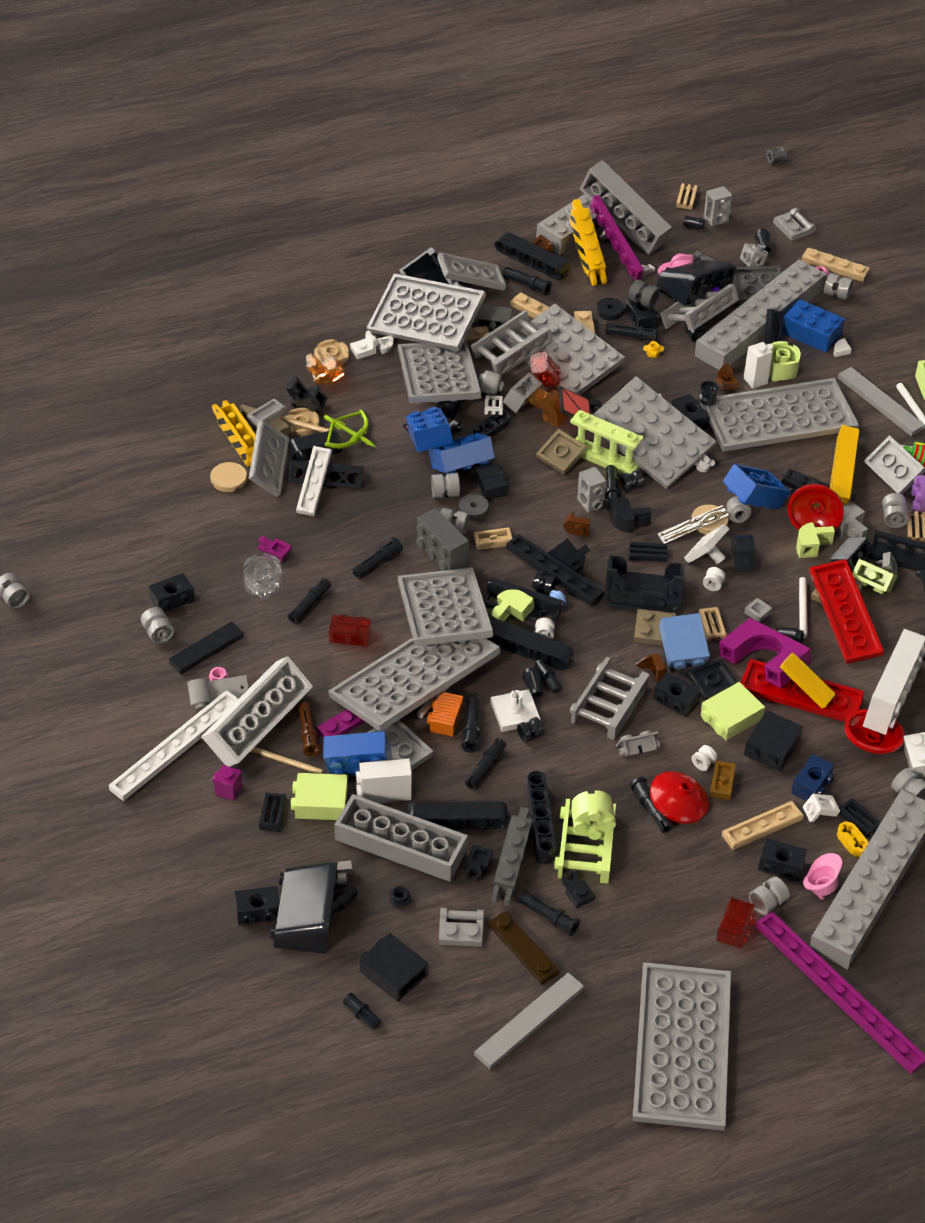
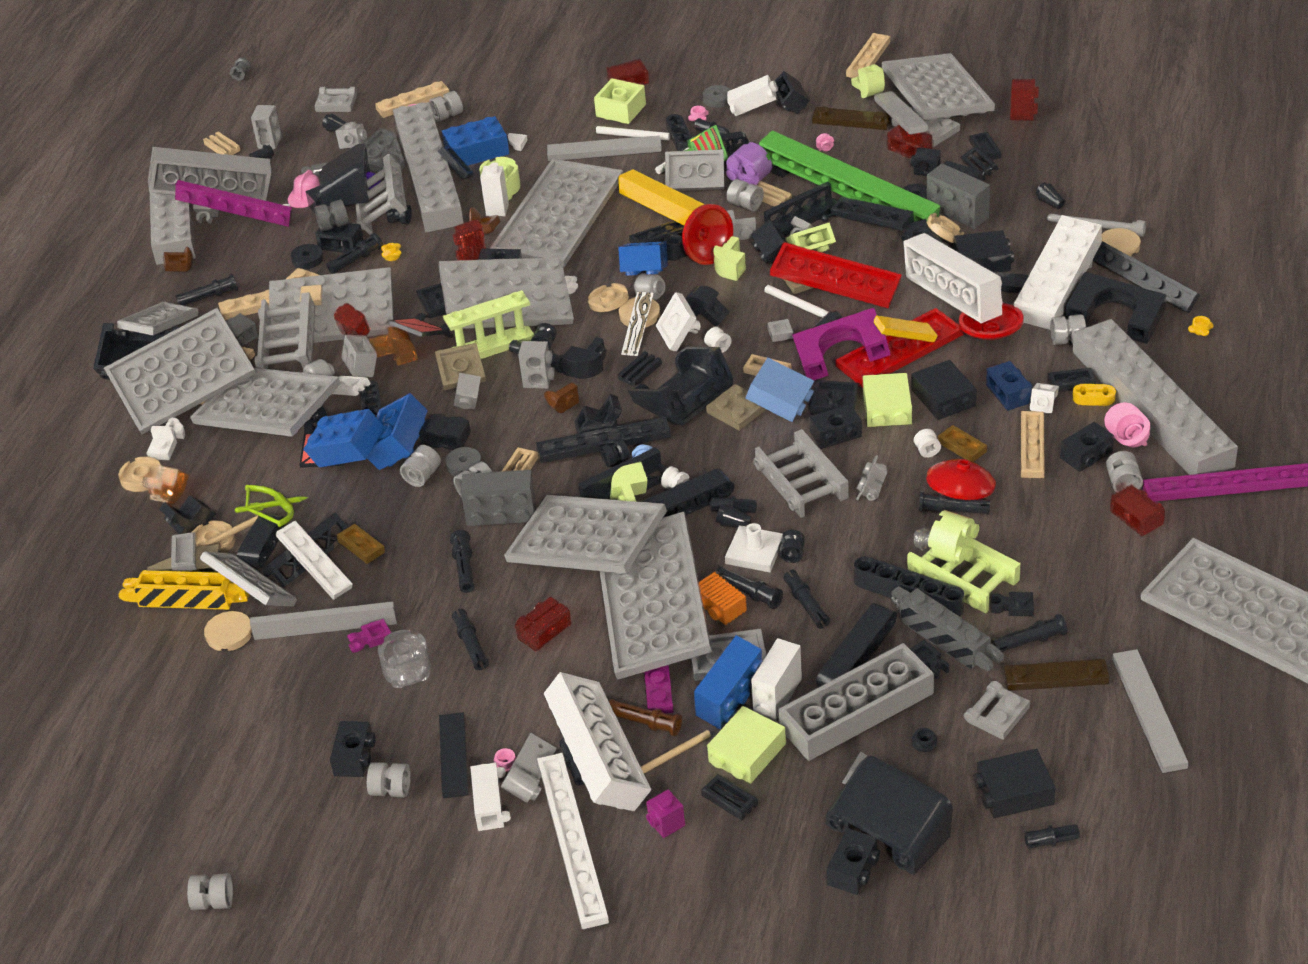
camera: 50 degrees left, 5 degrees down
(174, 684) = (488, 796): none -> white brick
(268, 517) = (321, 620): none -> light grey tile
(351, 496) = (360, 543): none -> pearl gold plate
(532, 255) = (188, 271): black beam -> none
(536, 469) = (467, 391): none -> light grey brick
(559, 332) = (315, 292): none -> tan tile
(587, 243) = (218, 224): yellow hinge -> none
(654, 663) = (787, 424): reddish brown plate -> none
(690, 381) = (469, 240): none -> clear red brick
(708, 393) = (494, 235): black wheel -> none
(708, 493) = (608, 298): none -> tan tile

